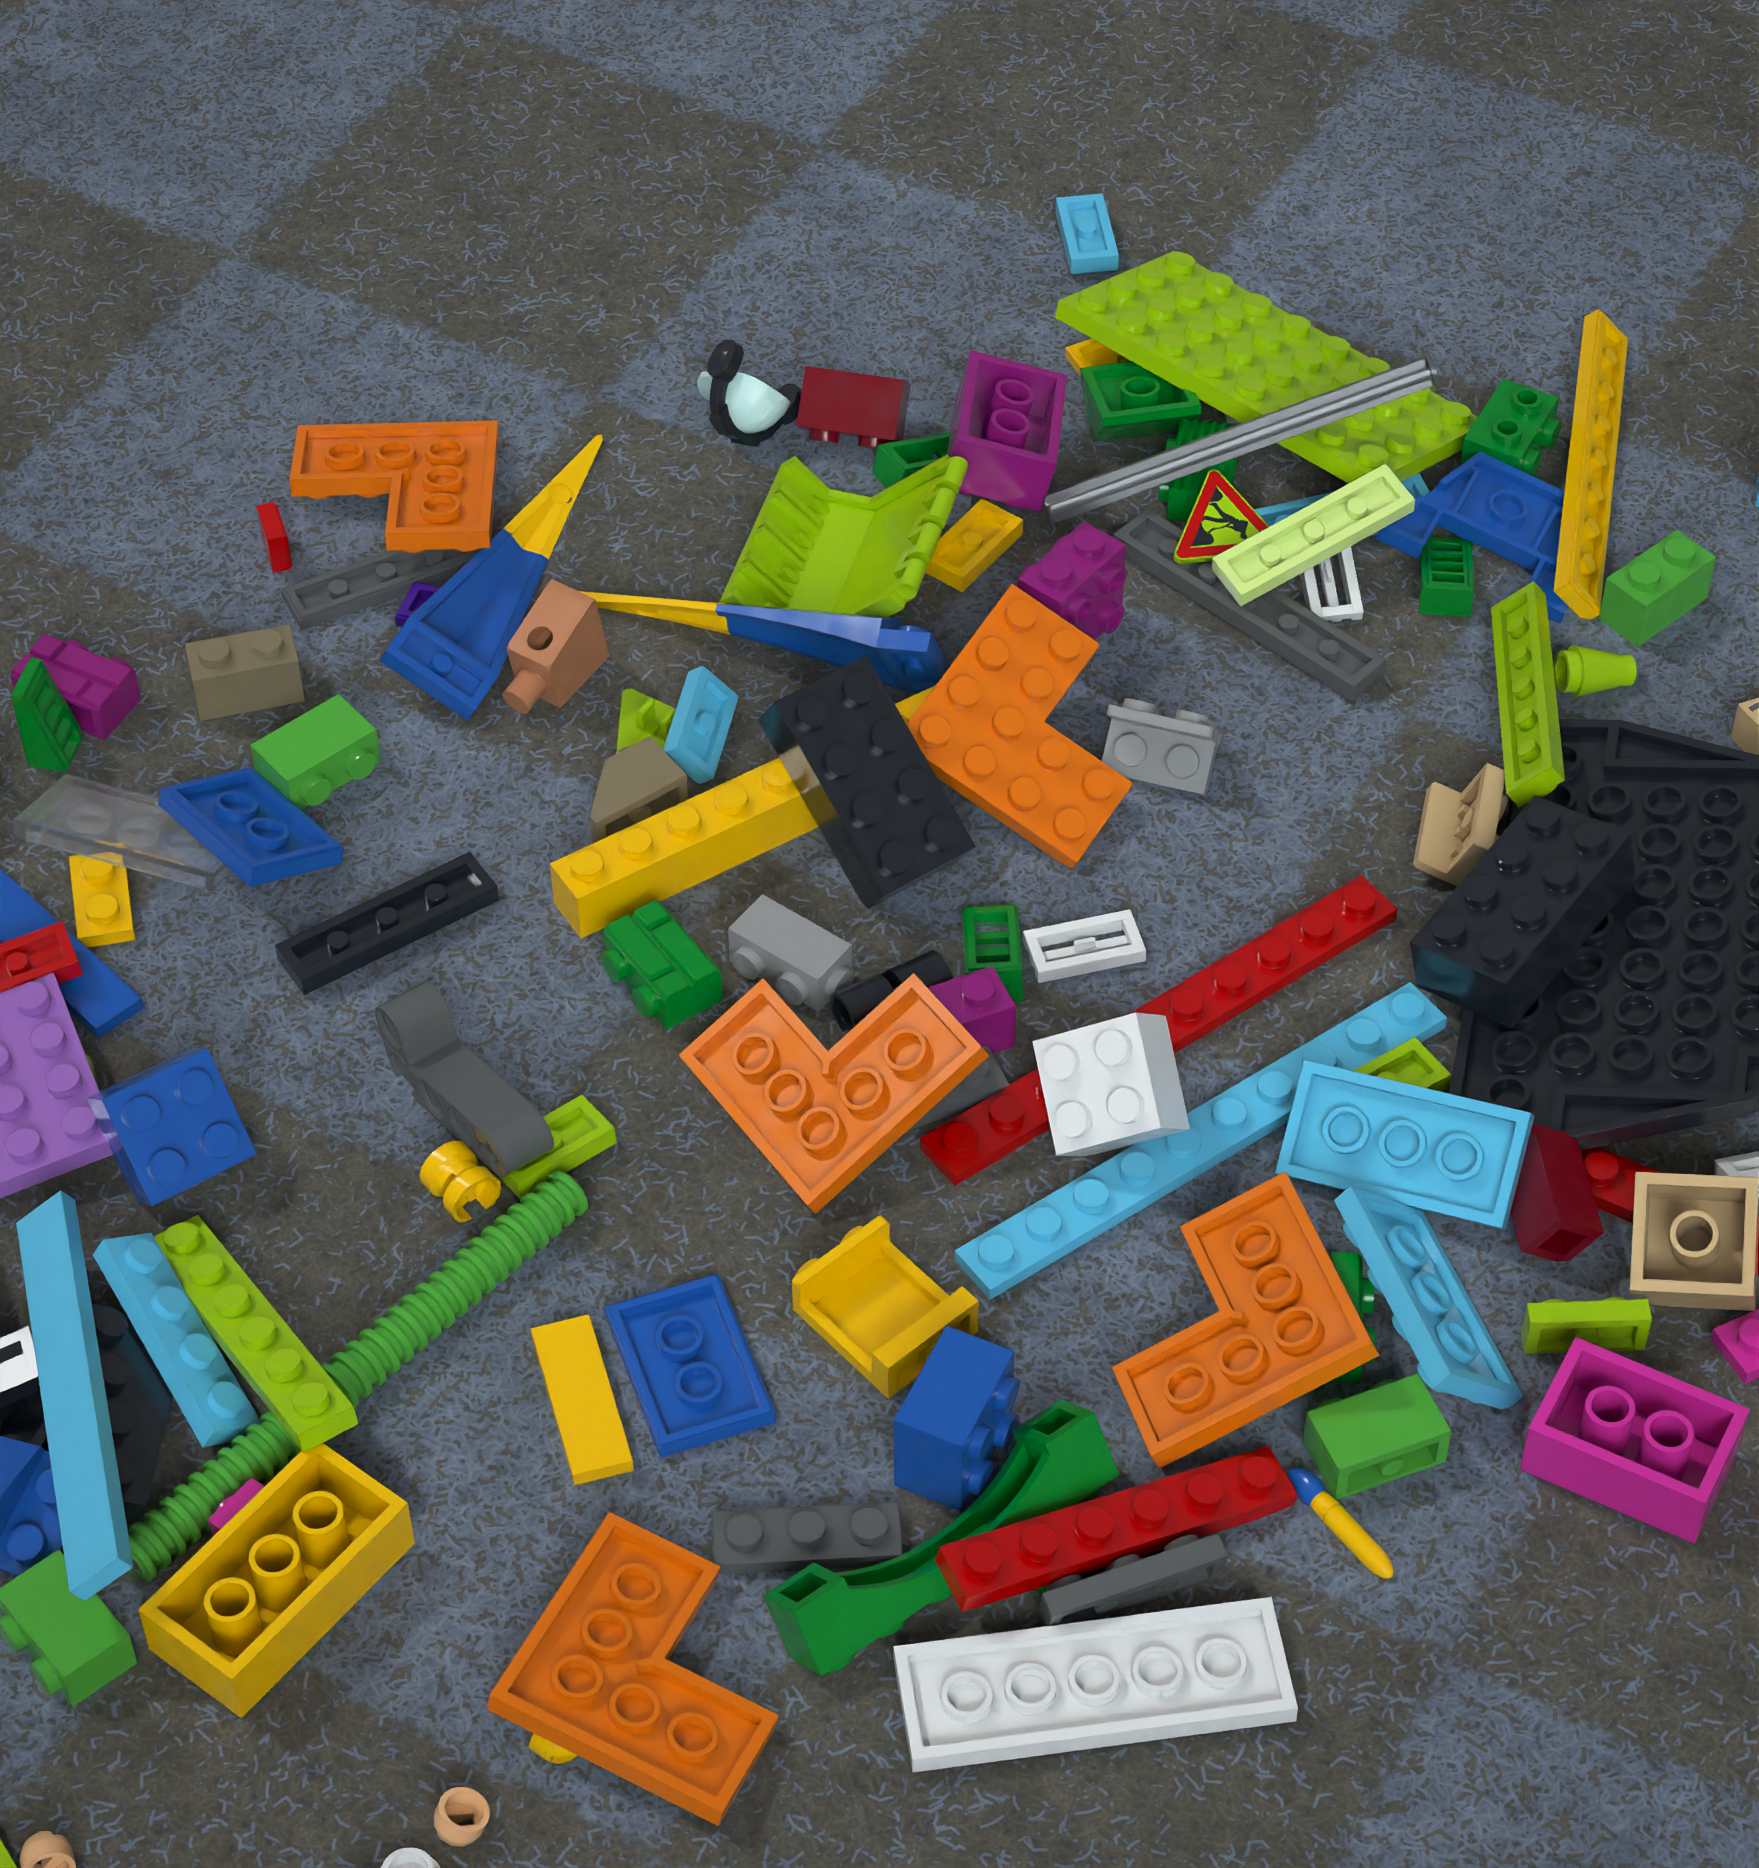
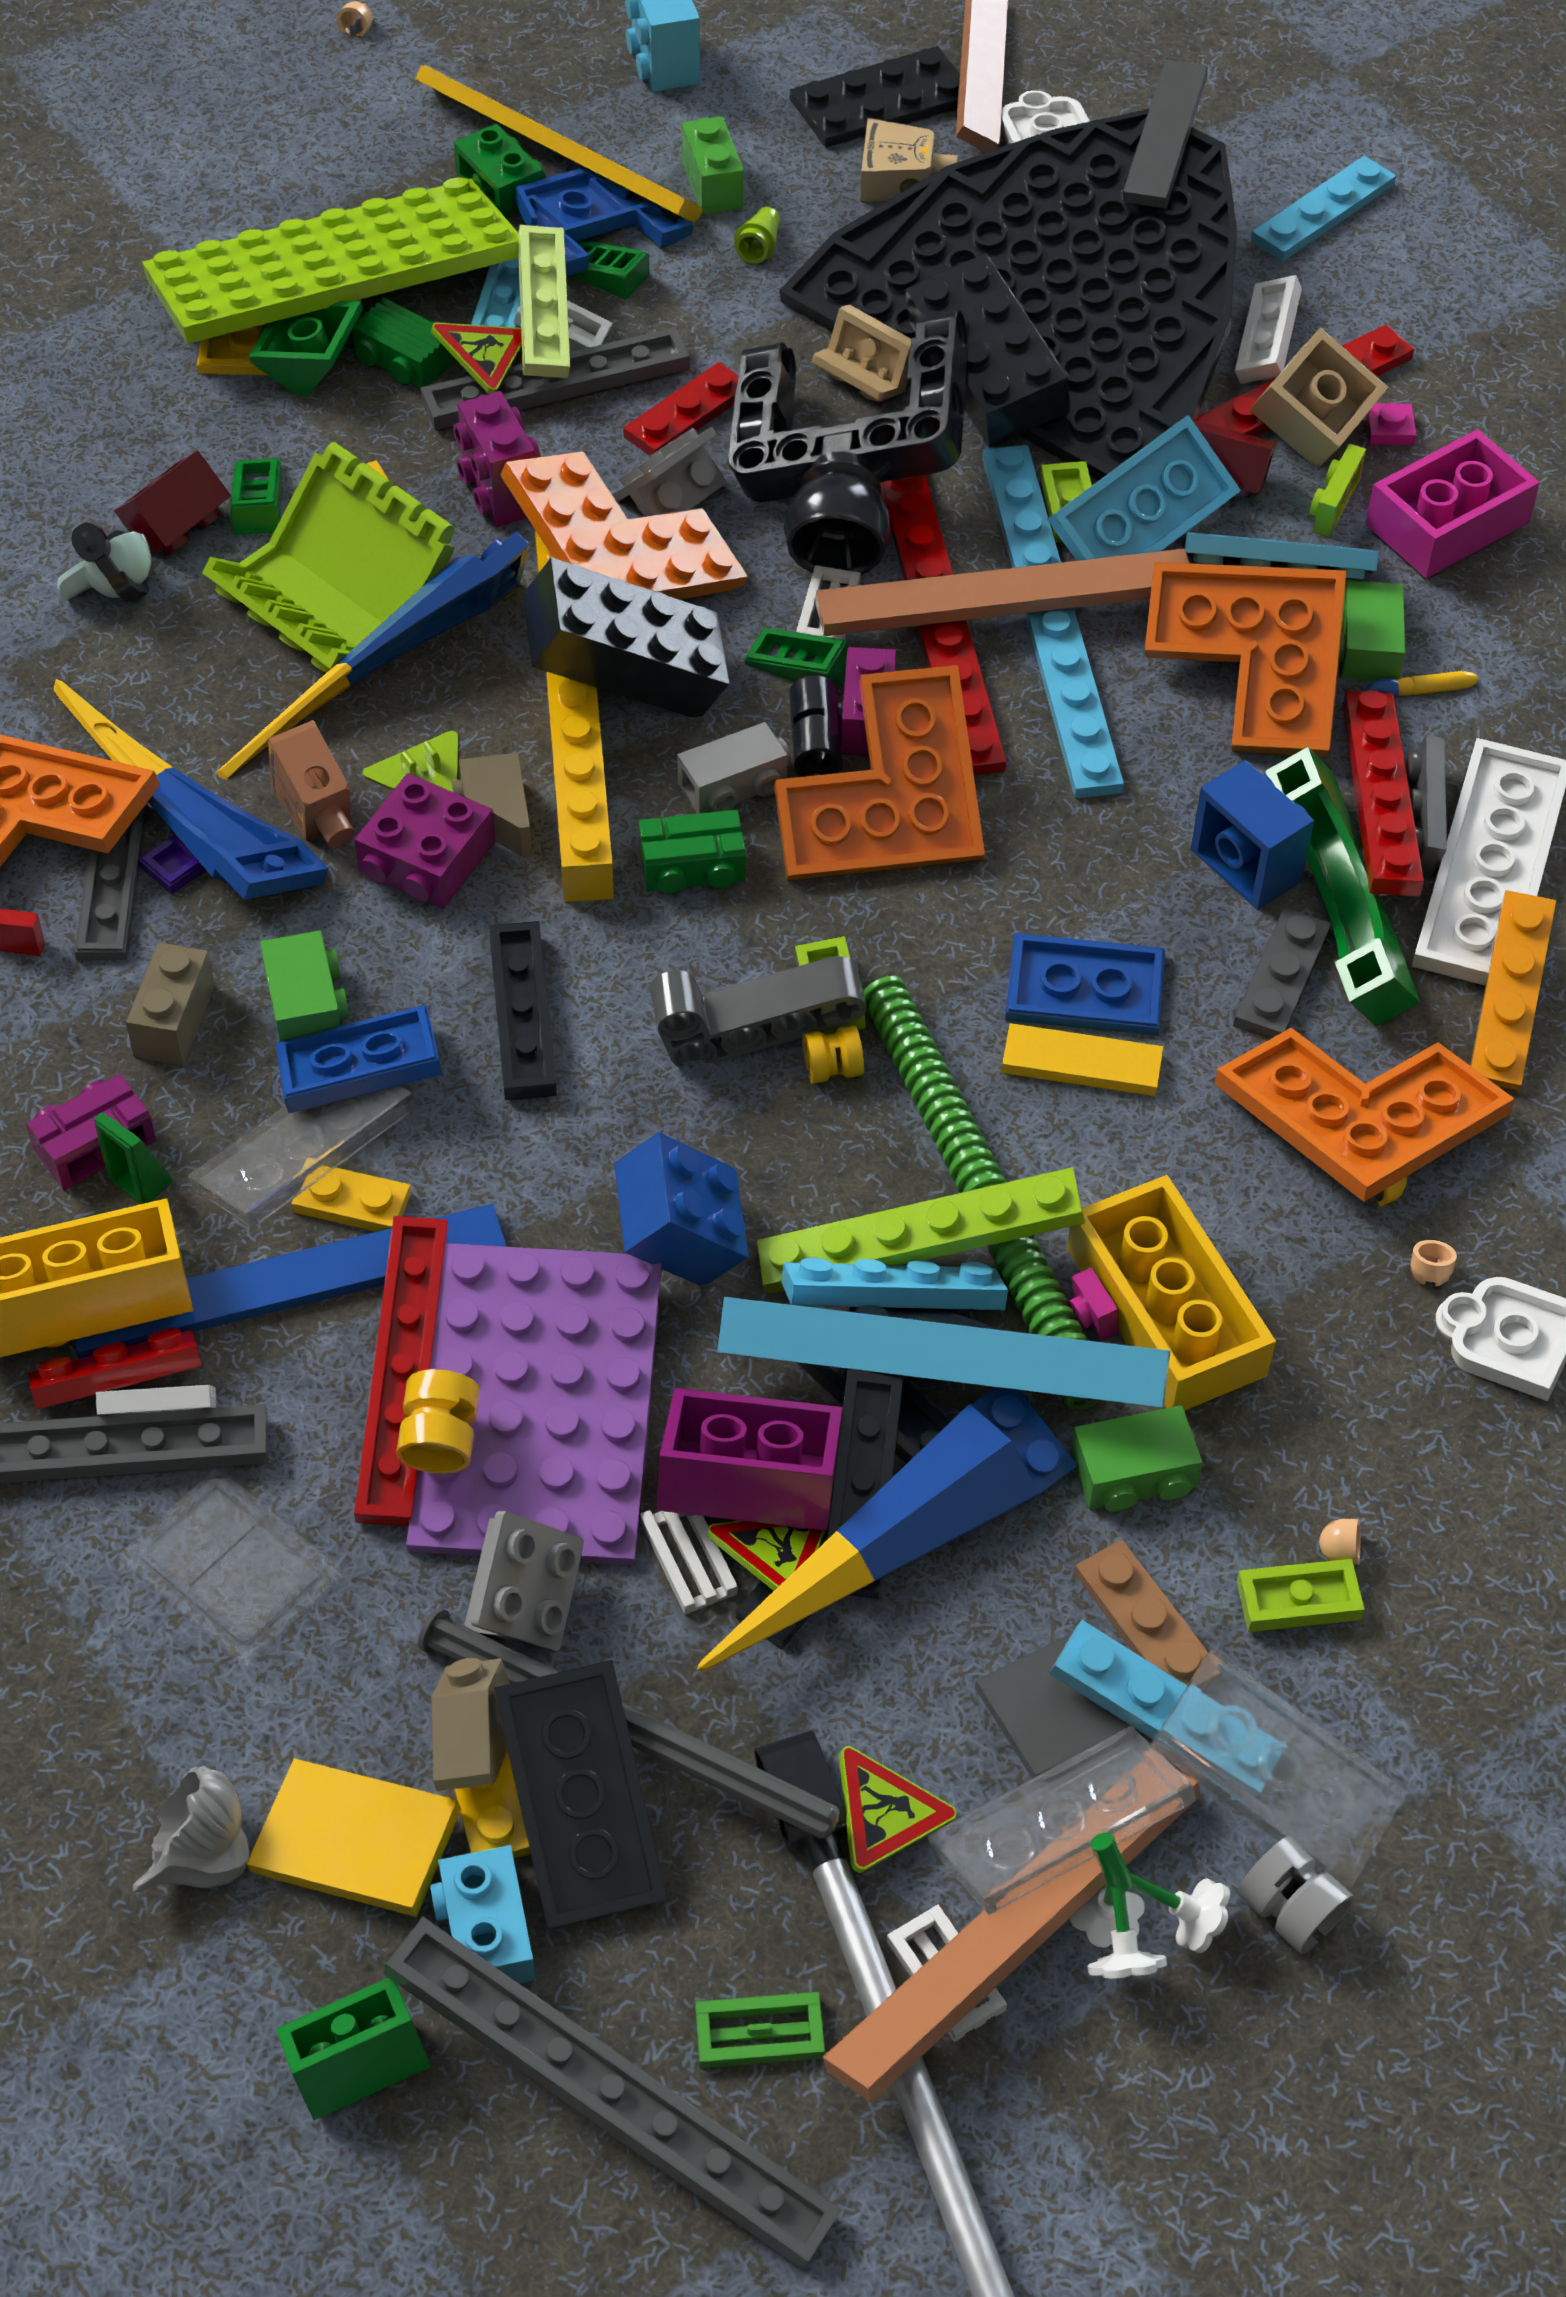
camera: 65 degrees left, 5 degrees up
(540, 760) = (425, 840): none -> magenta brick
(700, 724) = (441, 723): medium azure plate -> none
(878, 1306) = (1109, 850): yellow panel -> none
(888, 1758) = (1512, 988): none -> light orange plate
(1007, 429) = (283, 419): magenta brick -> none
(1087, 233) = (78, 300): medium azure plate -> none
(1111, 1084) = (1012, 623): white brick -> none
(1211, 1097) = (990, 593): none -> nougat tile
(1243, 438) = (467, 154): axle -> none
(1245, 852) = (837, 470): none -> black piece
(1288, 722) = (684, 409): none -> red plate
(1527, 695) = (777, 264): lime plate -> none
(1655, 239) = (349, 15): none -> light nougat hinge

